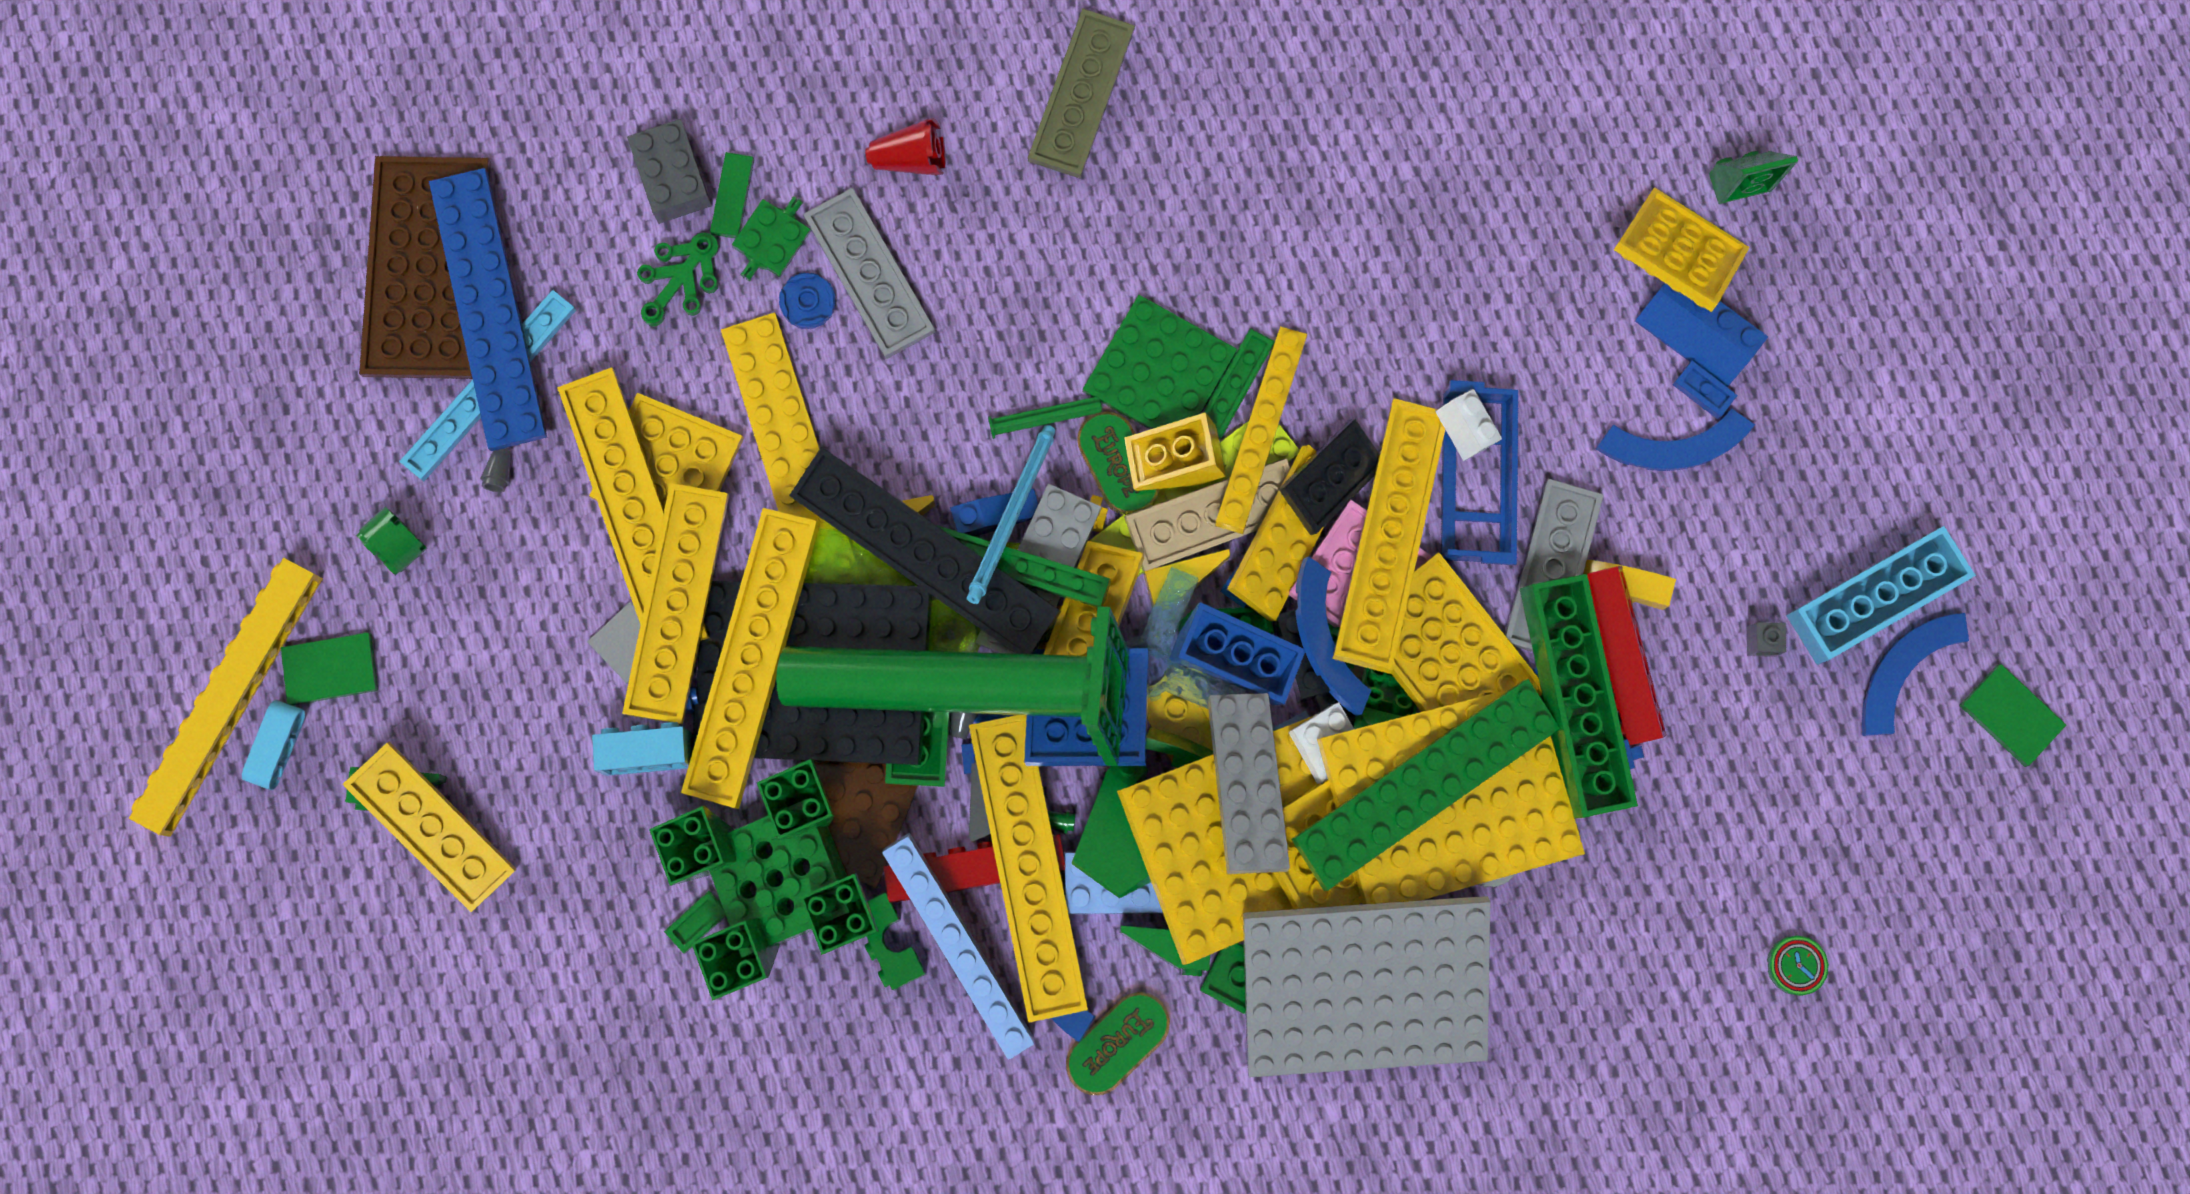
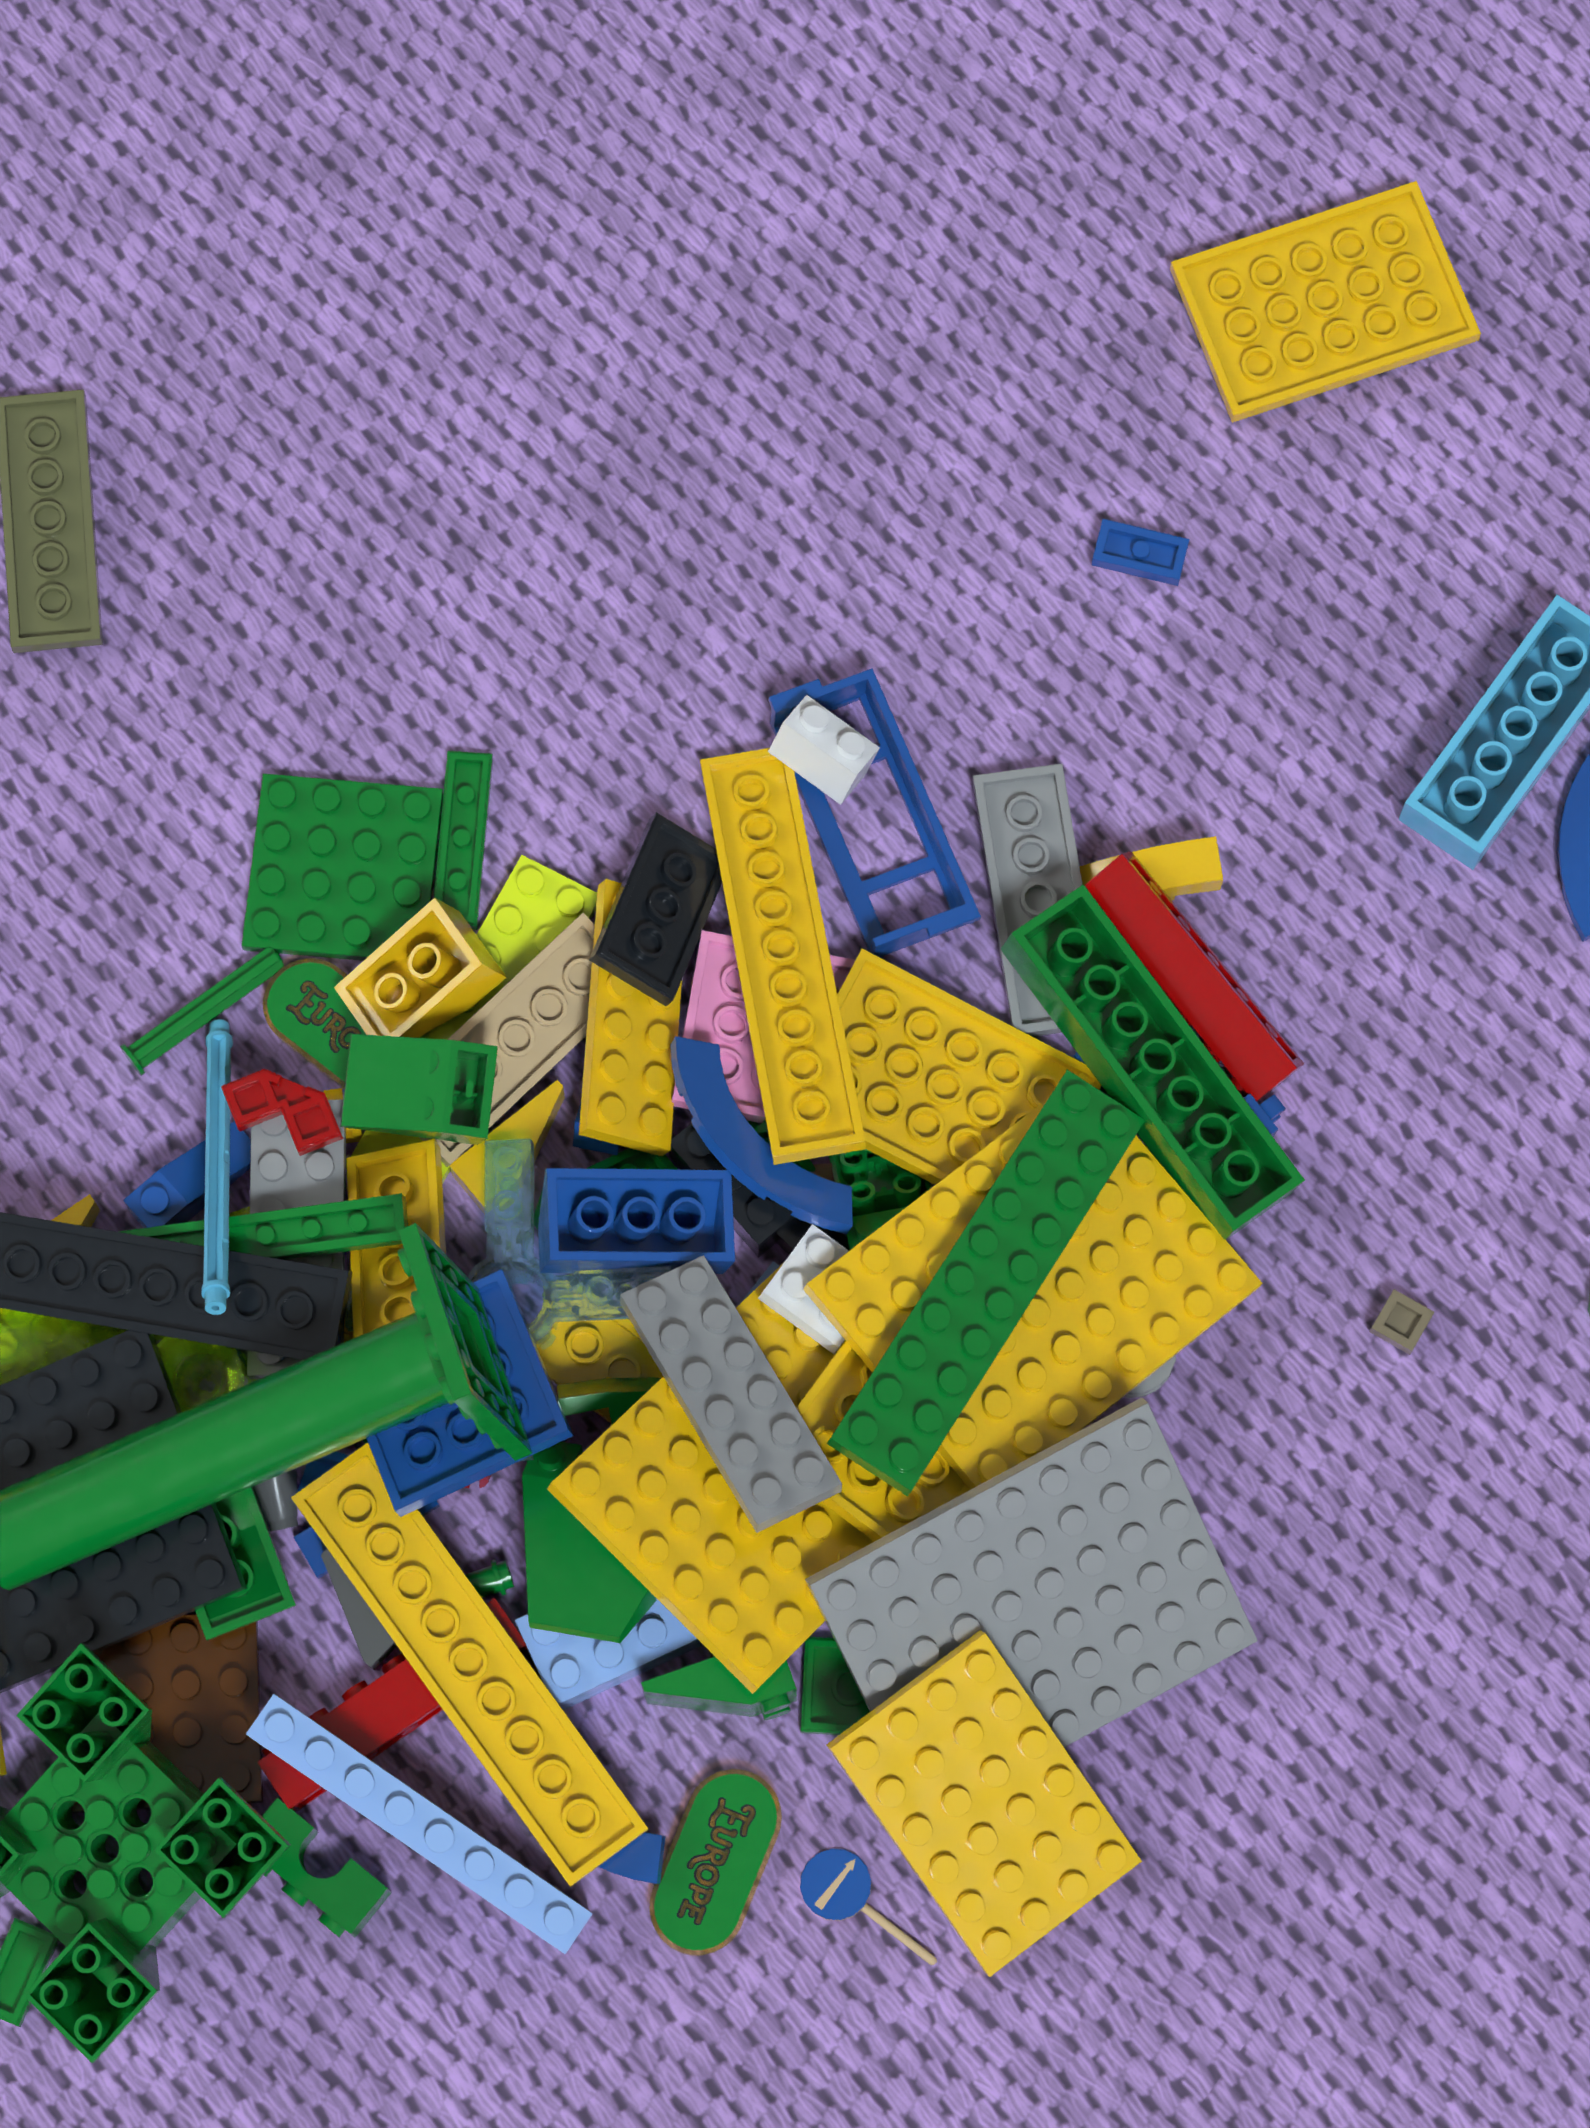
camera: 20 degrees left, 5 degrees down
(1059, 485) = (269, 1095): none -> red tile
(1147, 520) = (419, 1087): none -> green slope
(1181, 1090) = (837, 1888): none -> blue piece
(1261, 430) = (528, 889): yellow plate -> none
(1287, 1085) = (984, 1803): none -> yellow plate
(1655, 912) = (1401, 1321): none -> dark tan plate
(1679, 453) = (1140, 661): blue tile -> none
(1682, 249) = (1015, 367): yellow plate -> none
(1713, 340) = (1094, 467): blue slope -> none
(1749, 175) = (1066, 222): green slope -> none
(1766, 639) = (1383, 865): dark grey brick -> none
(1880, 289) = (1324, 301): none -> yellow plate

